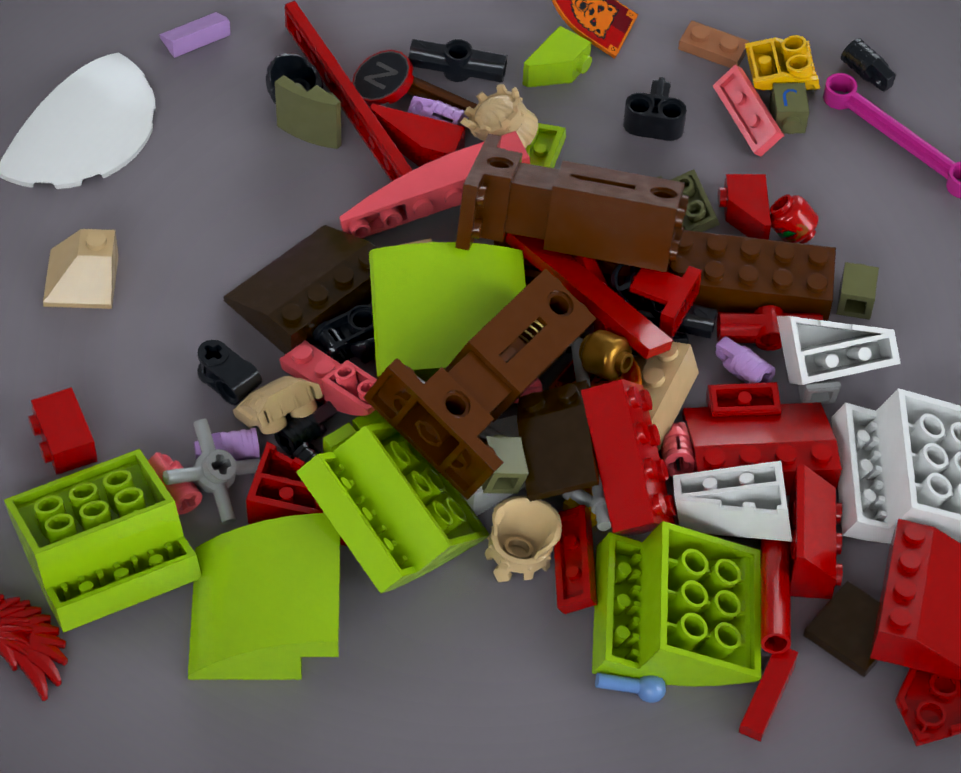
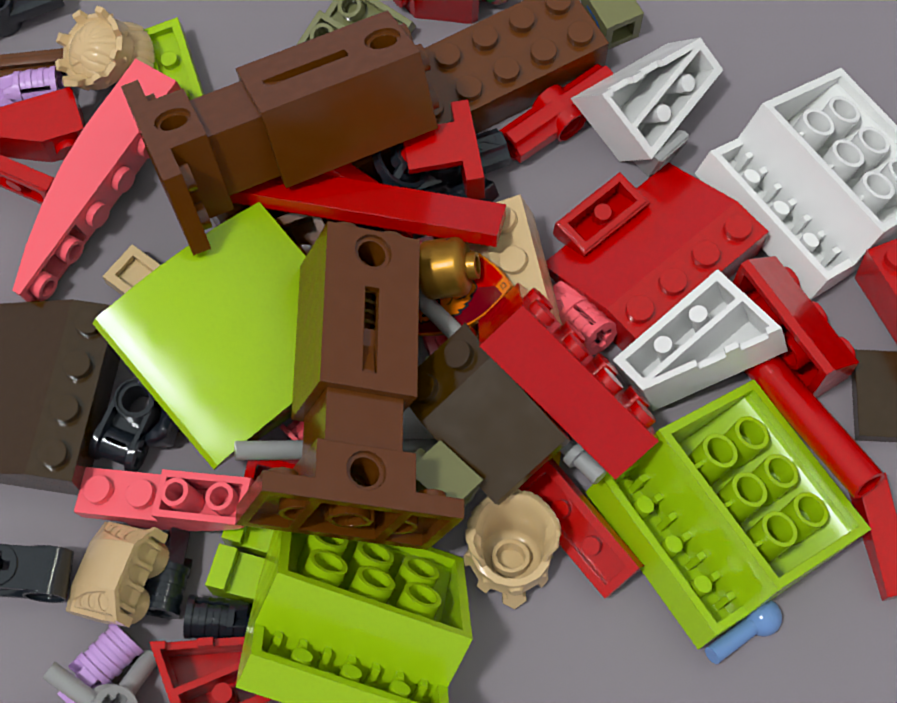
camera: 35 degrees left, 15 degrees up
(743, 362) = (565, 170): lavender hinge -> none

